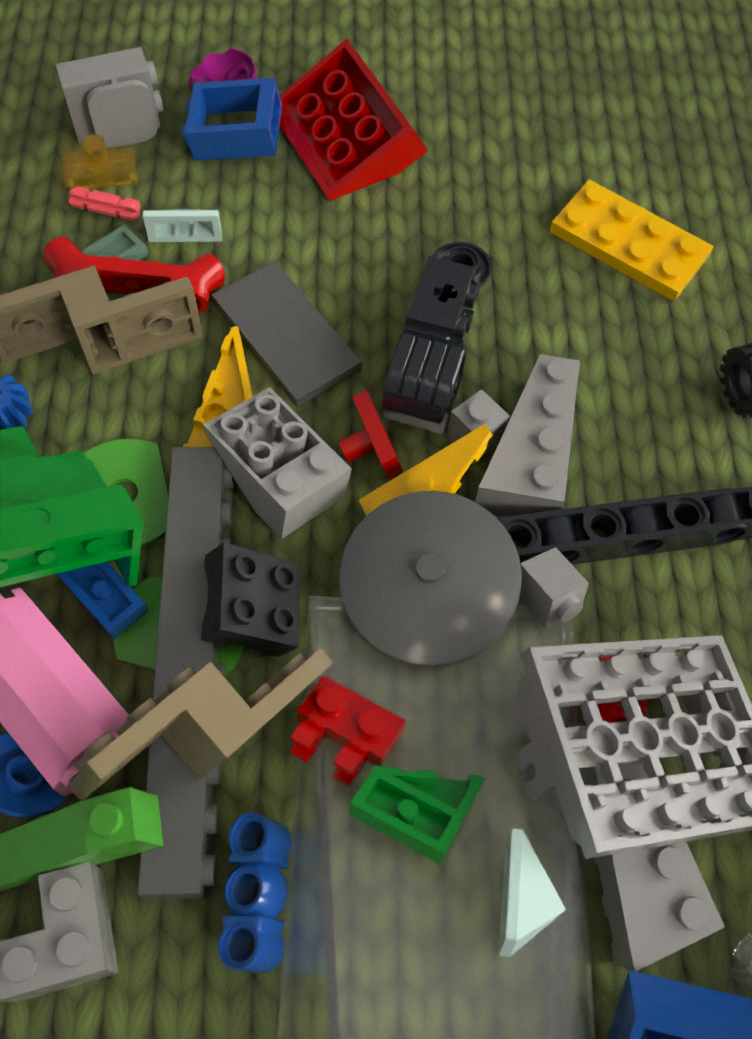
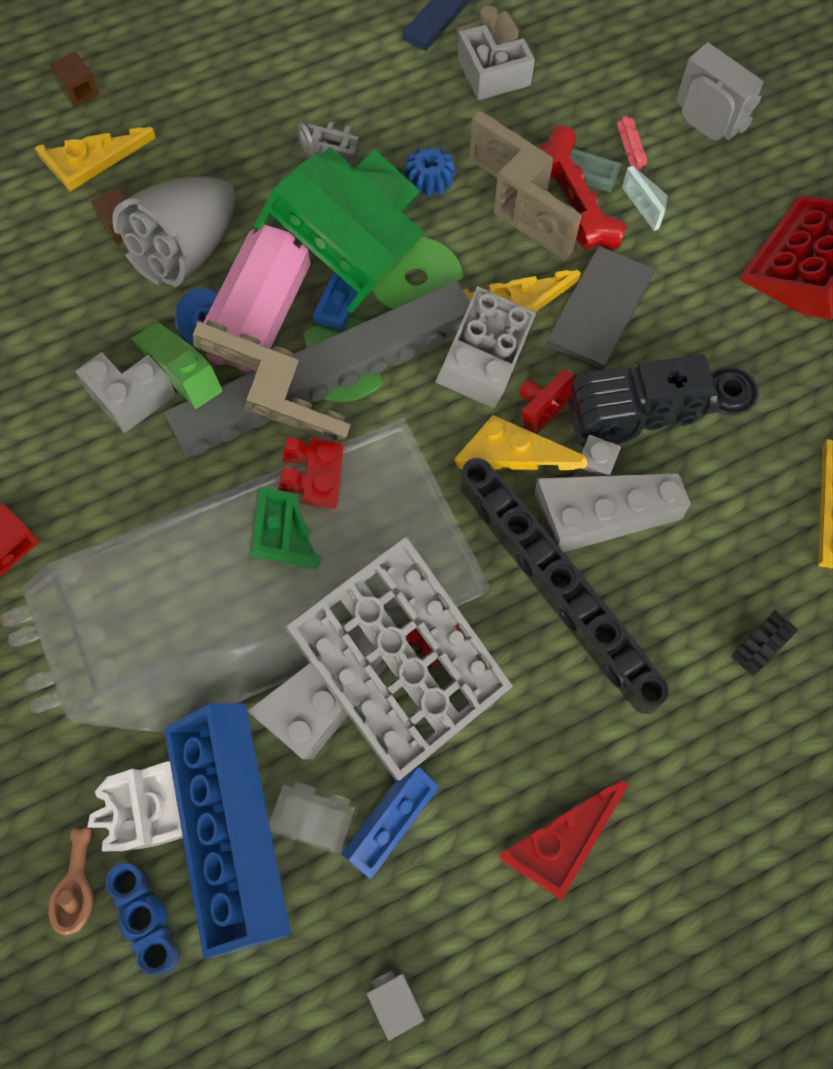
camera: 65 degrees right, 5 degrees up
(99, 165) = (661, 123): clear yellow tile -> none
(223, 67) = (801, 150): magenta hair -> none
(233, 140) = (771, 200): blue window -> none
(252, 600) = (376, 381): black brick -> none
(255, 917) = (197, 477): blue piece -> none
(430, 579) = (450, 478): dark grey dish -> none
(527, 895) = (250, 610): light aqua slope -> none
(552, 588) = (491, 562): light grey brick -> none

